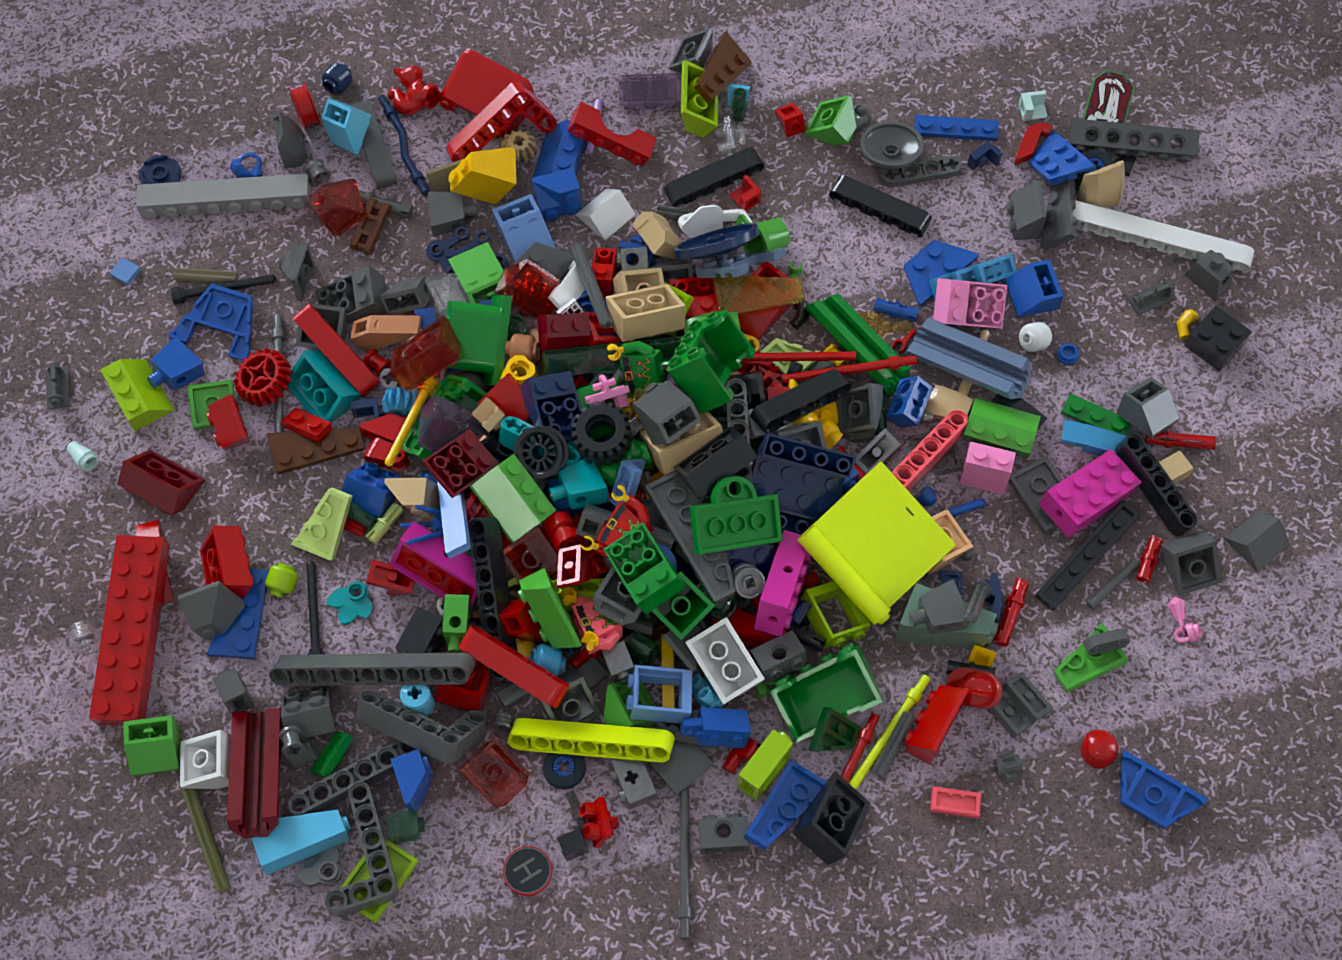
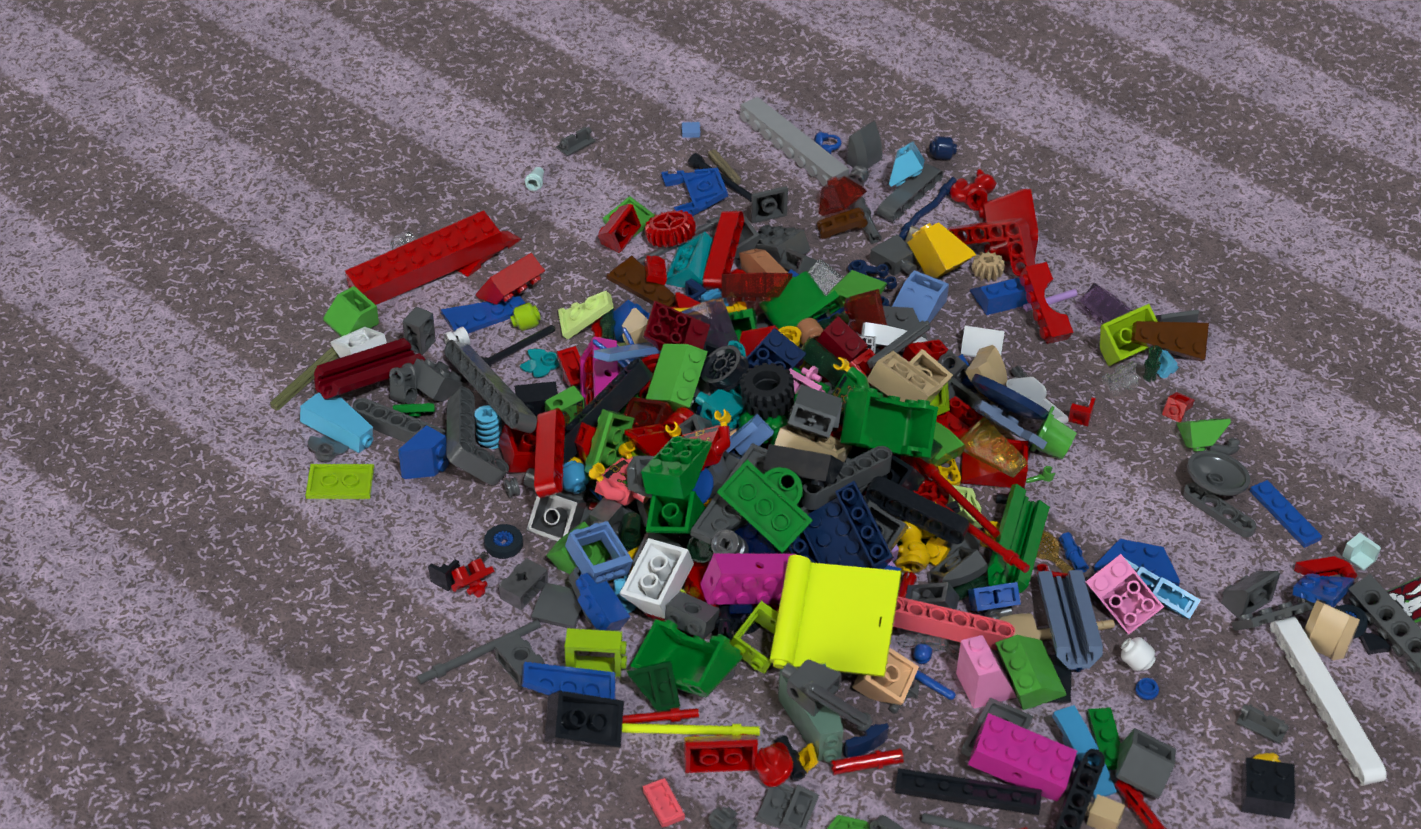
camera: 55 degrees right, 20 degrees down
(134, 393) = (604, 177): lime slope -> none
(159, 481) = (548, 221): dark red slope -> none
(166, 170) = (784, 106): dark blue tile -> none
(175, 366) = (639, 184): blue torso -> none
(211, 609) = (470, 287): dark grey slope -> none
(263, 660) = (459, 335): none -> white wheel
(304, 106) = (898, 137): red wheel -> none
(372, 855) = (354, 465): dark grey beam -> none
(405, 826) = (388, 473): clear green brick -> none
(489, 415) = (736, 334): tan bracket -> none
(495, 773) = (466, 501): clear red slope -> none
(527, 871) = (406, 561): black tile -> none
(557, 194) = (966, 301): blue slope -> none
(591, 740) = (533, 538): neon yellow beam -> none
(713, 176) = (1078, 385): black beam -> none
(881, 205) = (1159, 498): black beam -> none
(893, 744) = (678, 734): dark grey axle -> none
(946, 576) = (864, 705): clear blue tile -> none
(983, 154) = (1275, 538): dark blue bracket -> none
(1034, 289) = (1184, 633): blue slope -> none
(1212, 274) = (1326, 742): dark grey torso -> none

